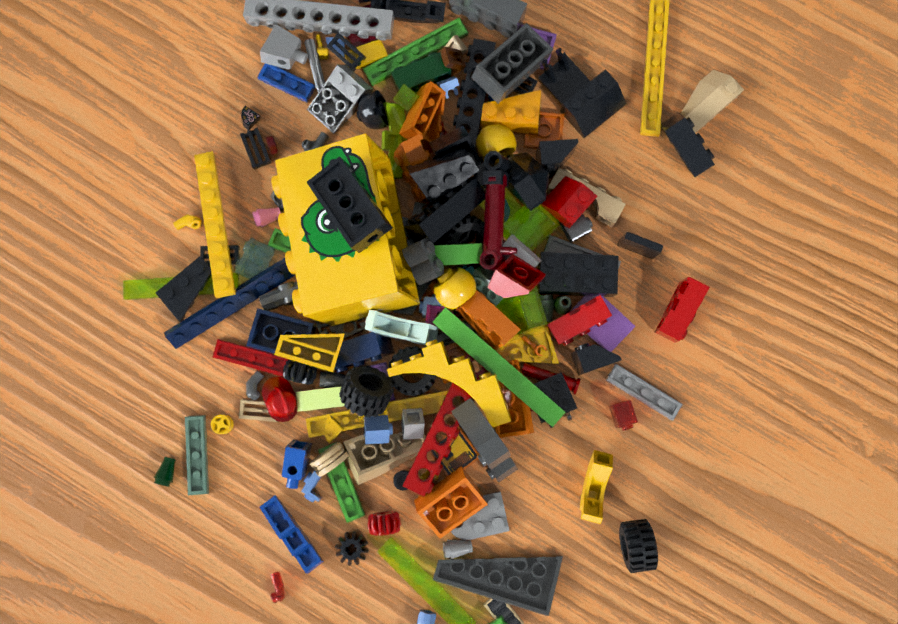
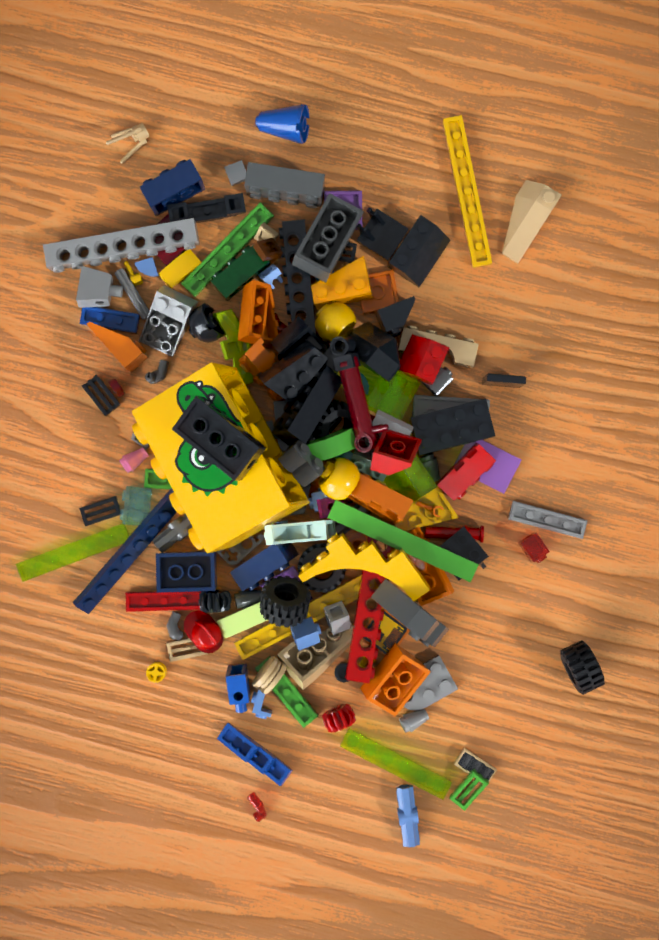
camera: 15 degrees left, 5 degrees up
(165, 473) = (117, 733): dark green cone -> none
(184, 288) = (78, 553): black wing -> none
(188, 220) = (59, 486): yellow arm -> none
(196, 455) = (141, 708): sand green tile -> none
(214, 225) = (86, 483): yellow plate -> none
(249, 117) = (85, 367): black tile -> none
(291, 111) = (126, 351): none -> orange slope
(311, 349) = (221, 579): yellow wedge -> none
(331, 429) = (262, 645): yellow tile -> none
(357, 62) = (174, 279): black tile -> none
(357, 553) = (322, 753): black gear -> none
(406, 97) = (233, 302): clear neon green tile -> none
(514, 581) = (474, 734): dark grey wing -> none
(561, 309) = (441, 462): dark grey cone -> none
(592, 357) = (489, 504): black slope -> none
(595, 485) = (526, 624): yellow arch -> none
(681, 309) = (561, 430): red wedge -> none
(688, 144) = (521, 265): black wedge -> none

